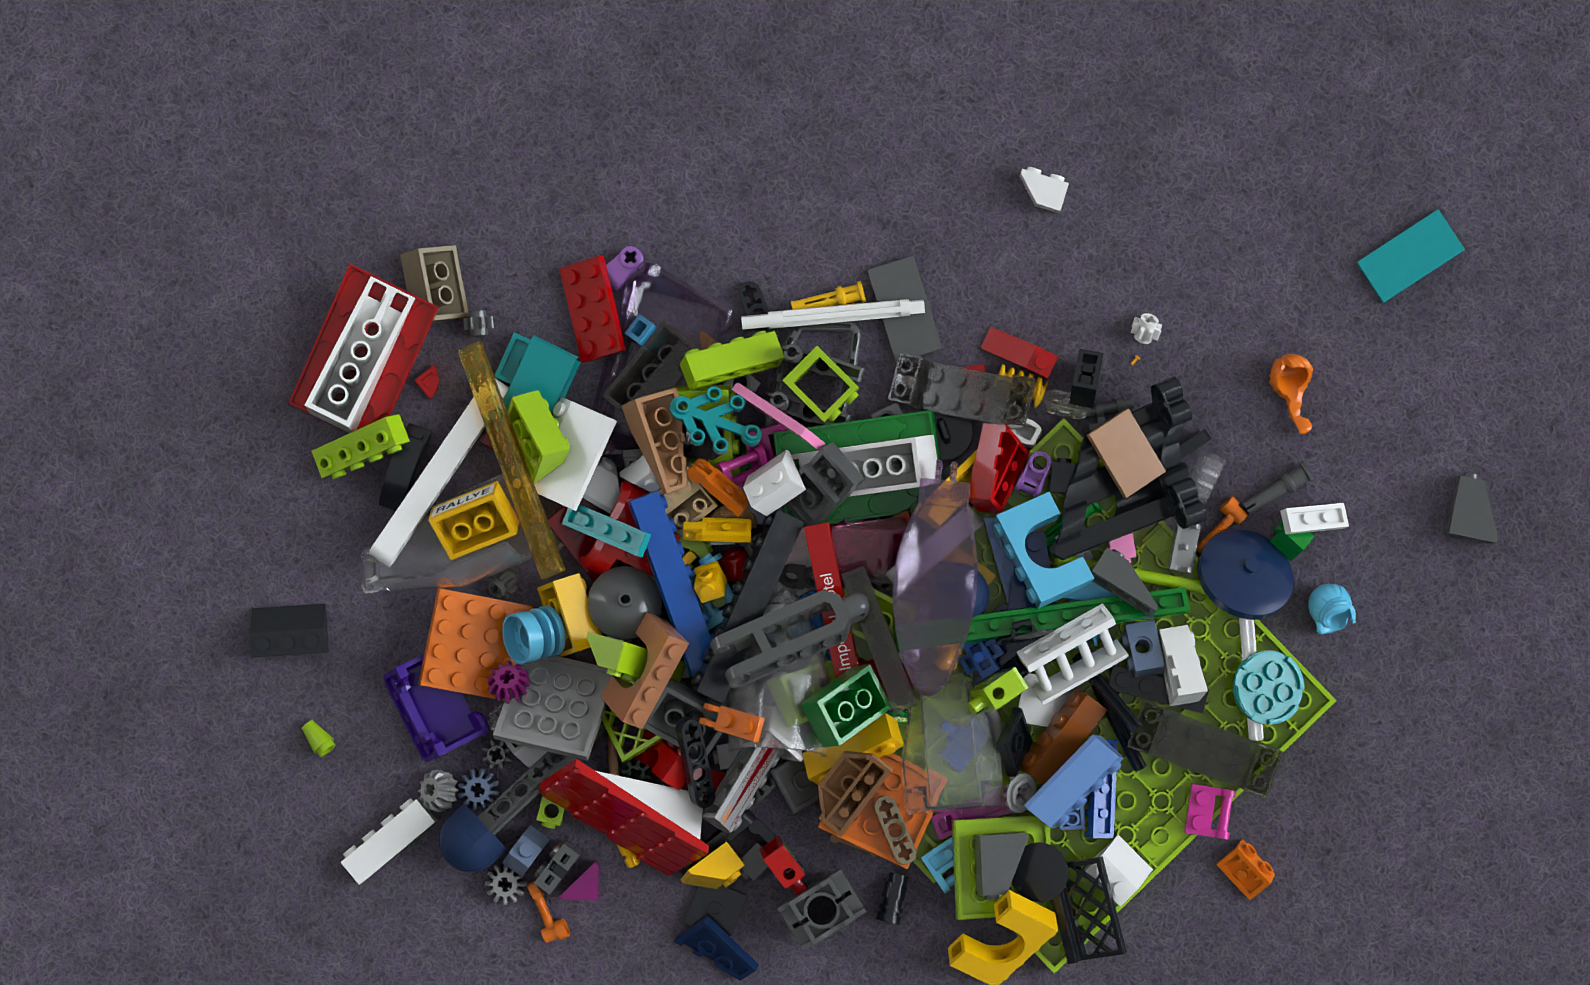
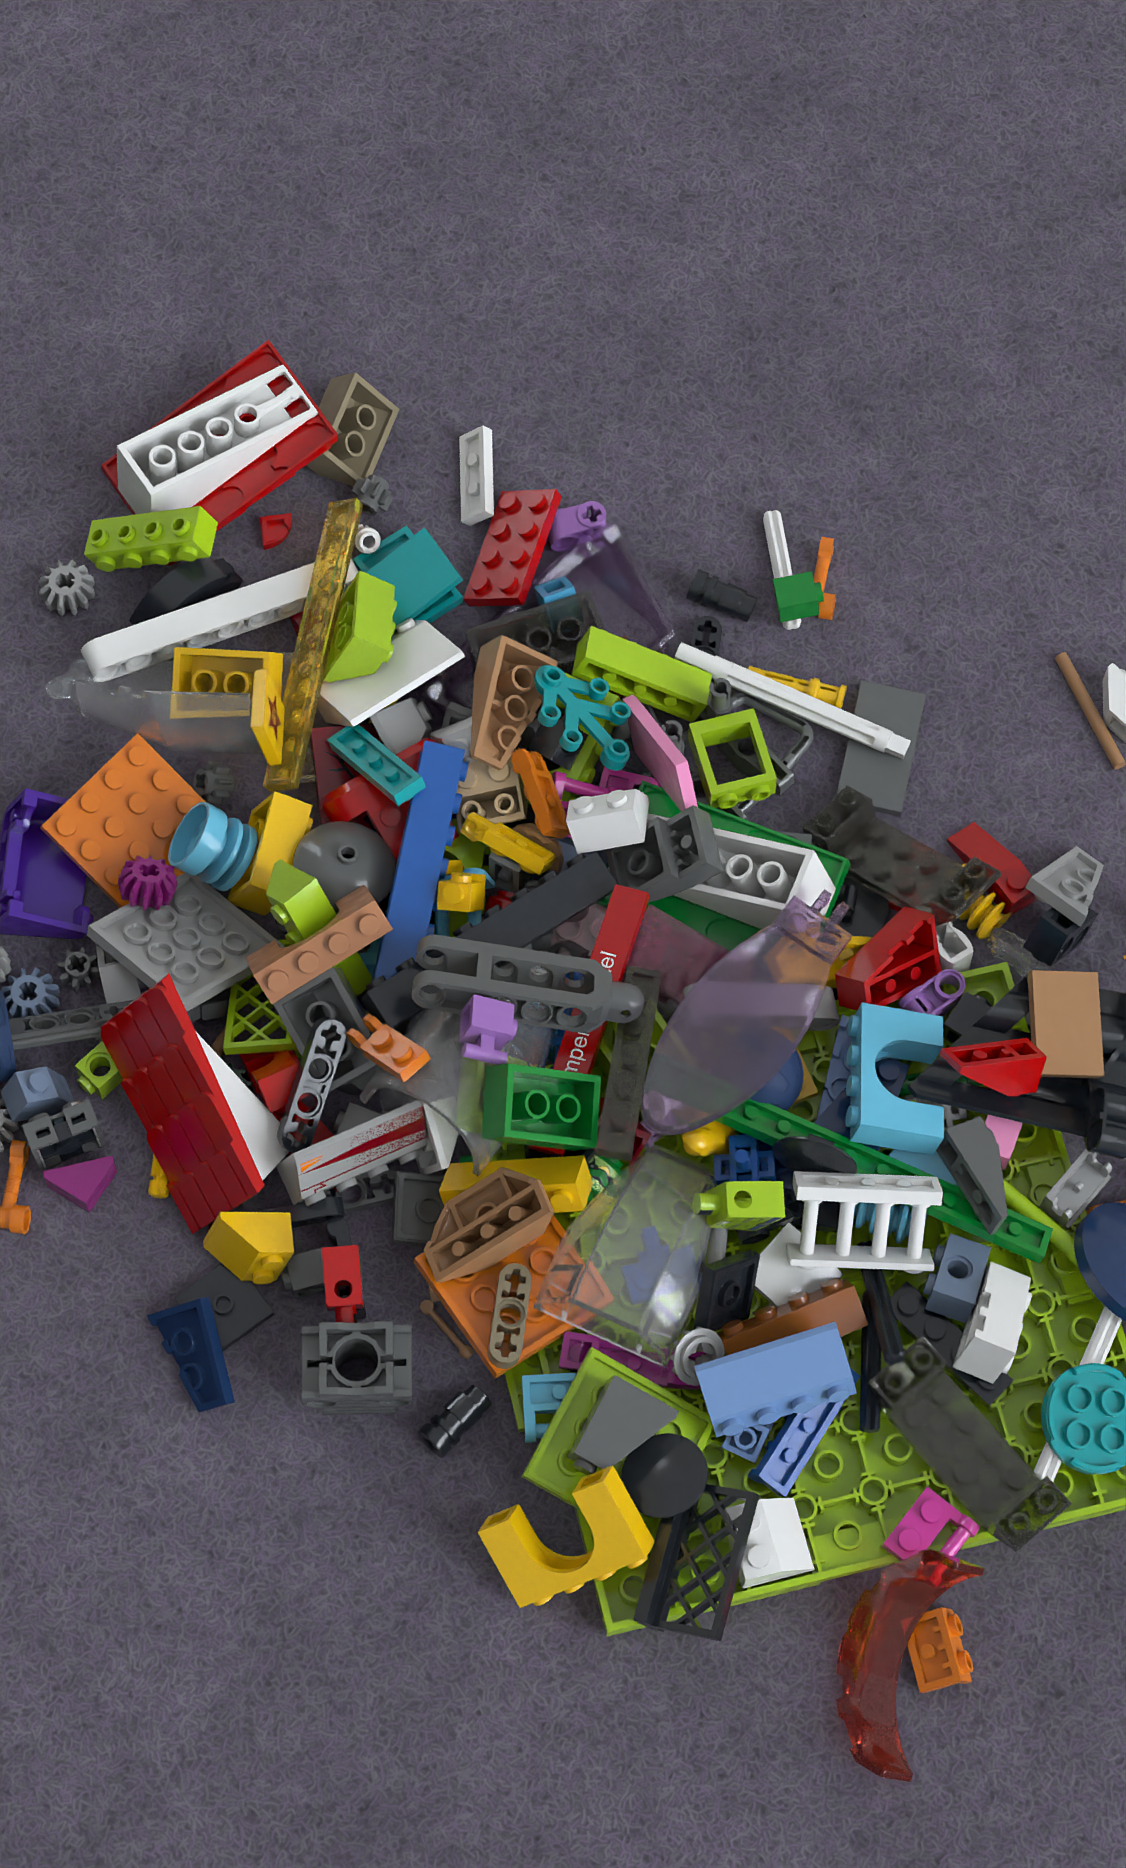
camera: 30 degrees right, 20 degrees down
(327, 512) = (67, 587): none -> light grey gear
(496, 359) = (372, 541): none -> white pin
(521, 540) = (267, 717): none -> yellow tile
(537, 268) = (476, 476): none -> white plate
(747, 262) = (724, 597): none -> black axle
(772, 218) = (778, 553): none -> white axle
(788, 680) = (486, 1029): none -> medium lavender brick
(796, 239) = (797, 596): none -> green brick
(807, 228) = (824, 557): none -> orange brick
(1023, 204) = (1090, 711): none -> medium nougat bar
(1075, 344) = (1068, 884): none -> light grey wing
(1100, 511) = (1005, 1066): none -> red slope
(1213, 901) = (874, 1652): none -> clear red windscreen

